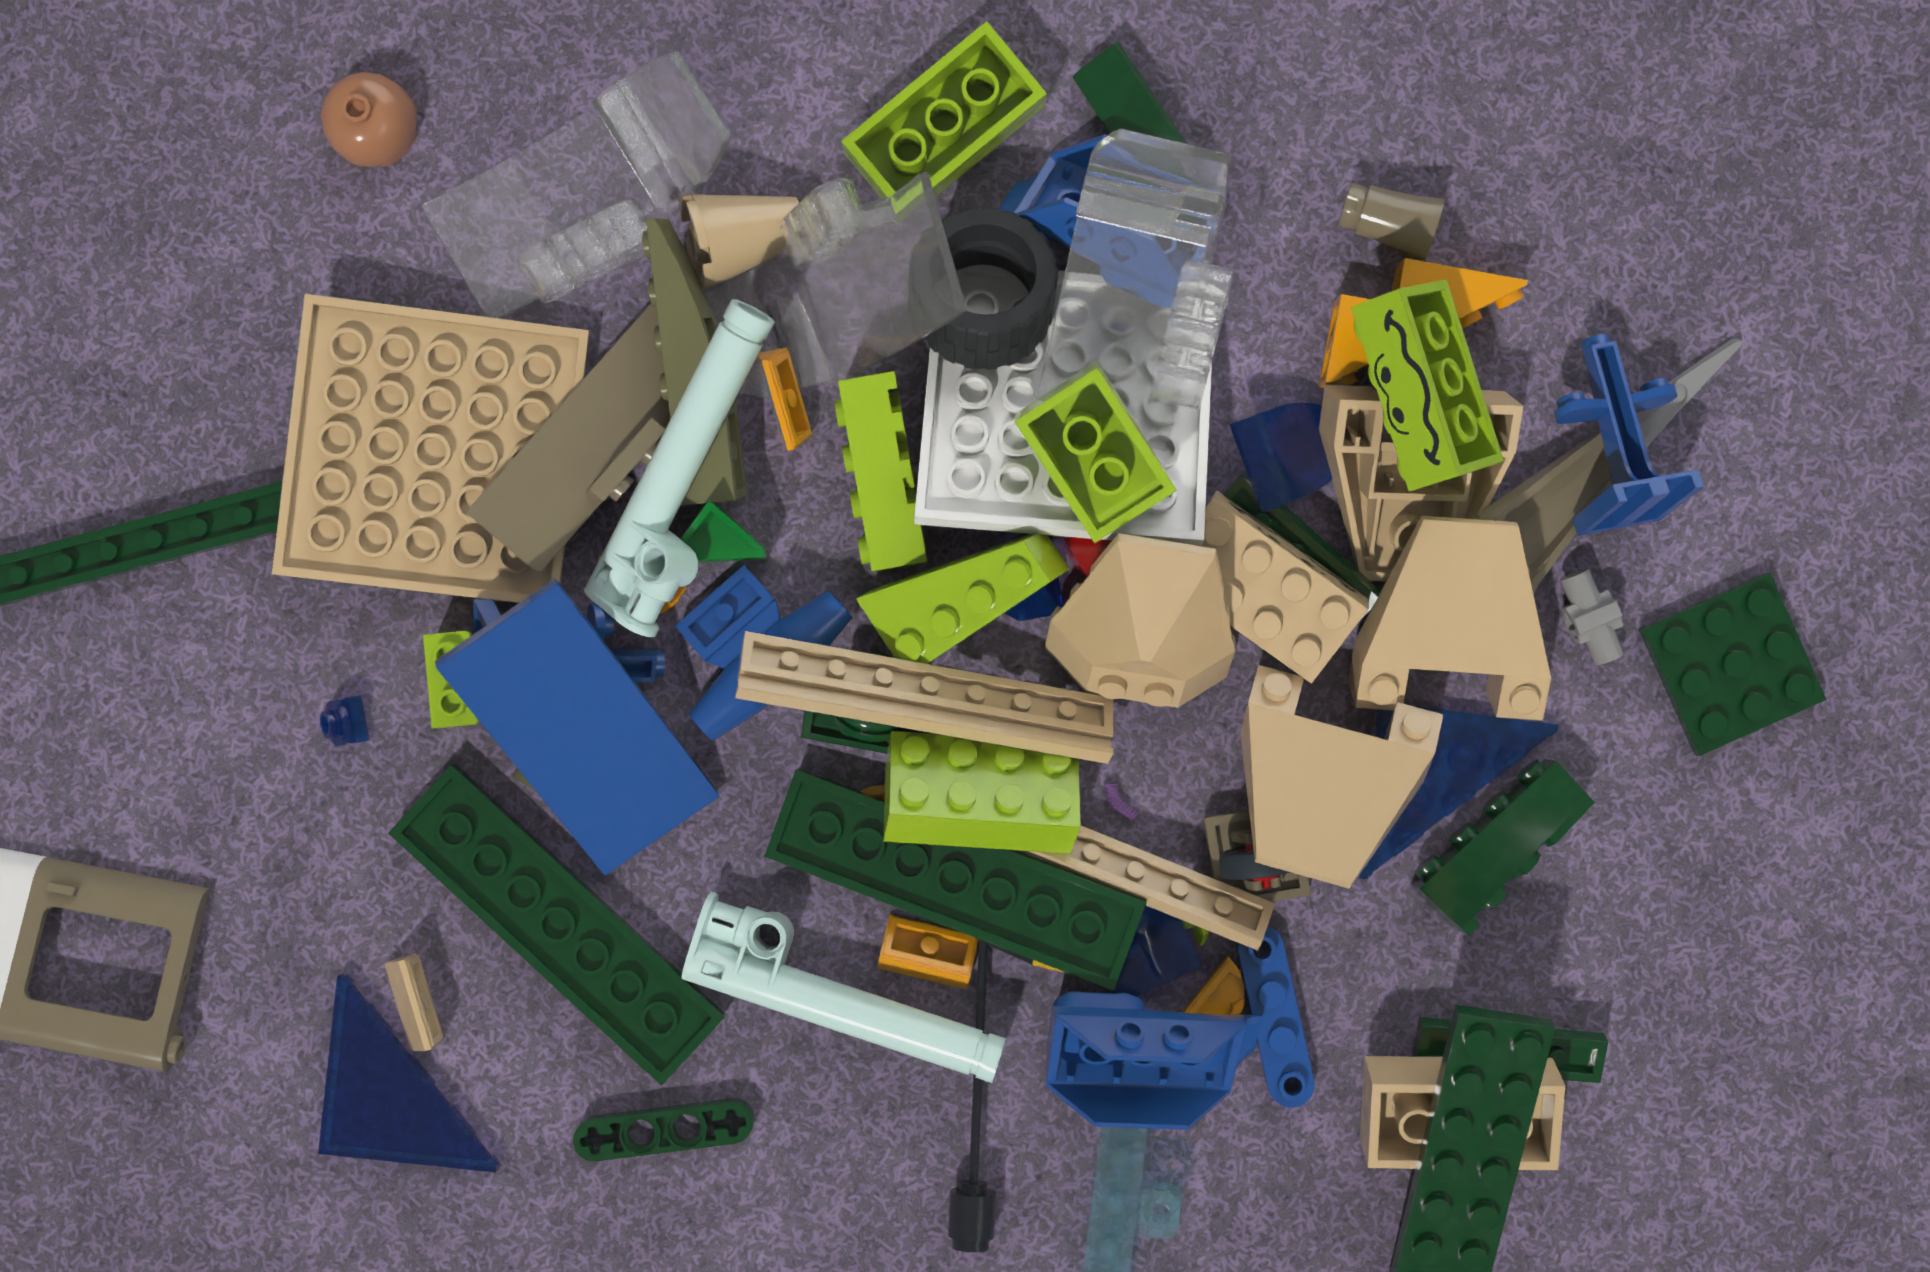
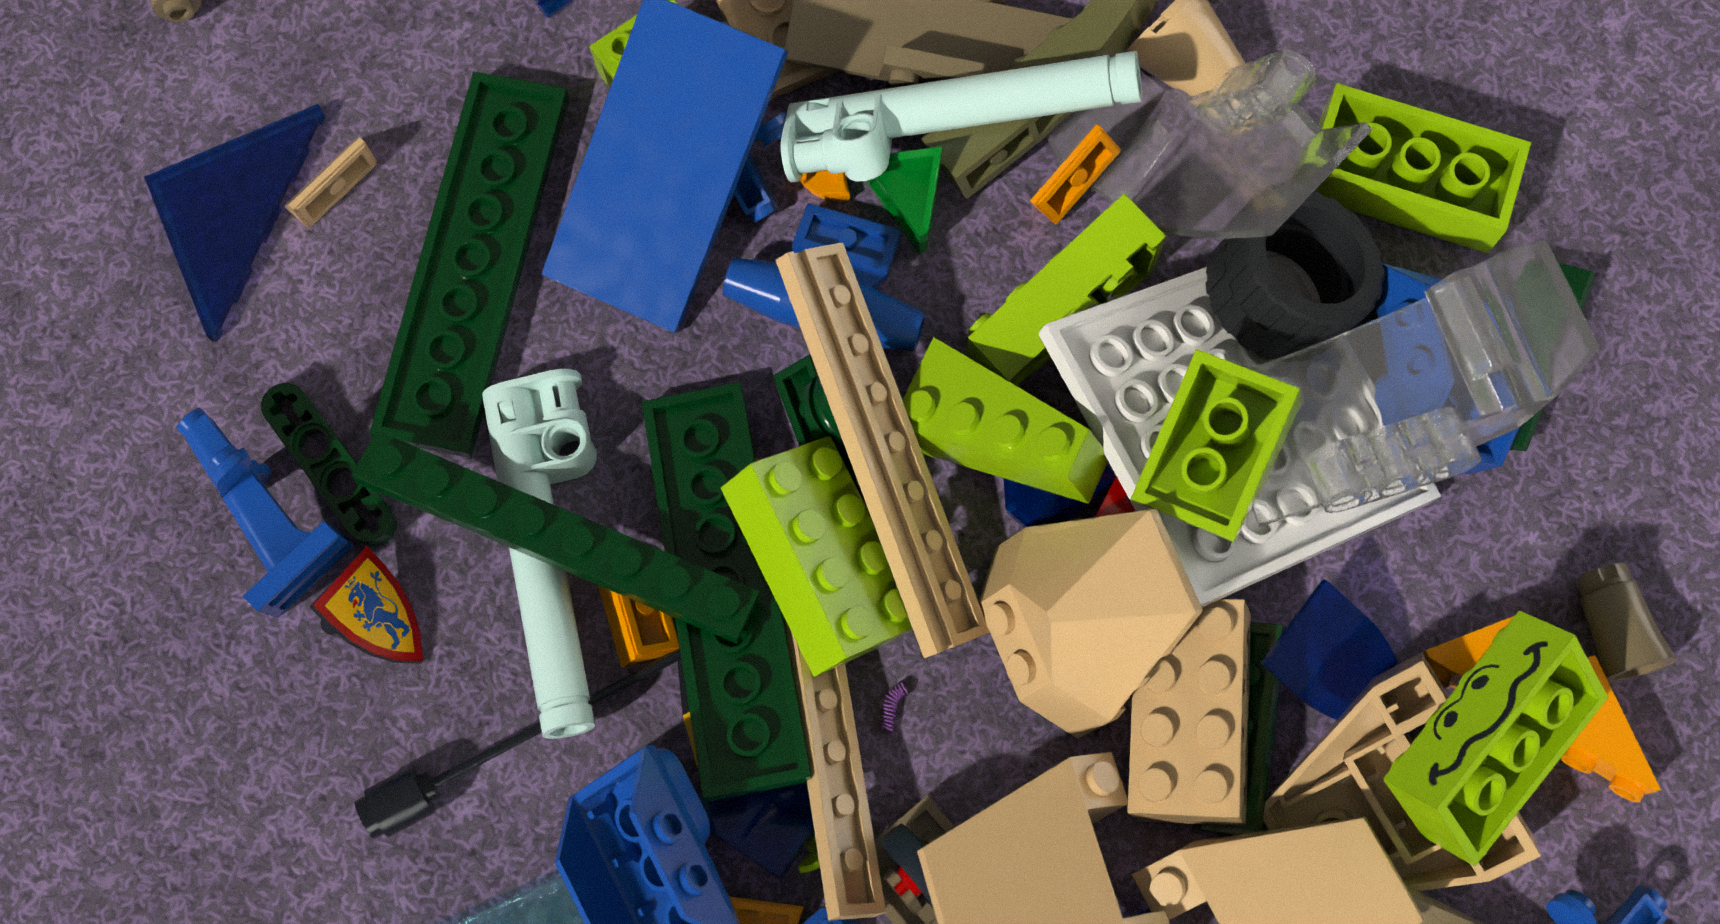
camera: 70 degrees right, 15 degrees down
(722, 1203) = (289, 555): none -> blue piece
(811, 1159) = (371, 611): none -> shield
(842, 990) = (557, 536): none -> dark green plate

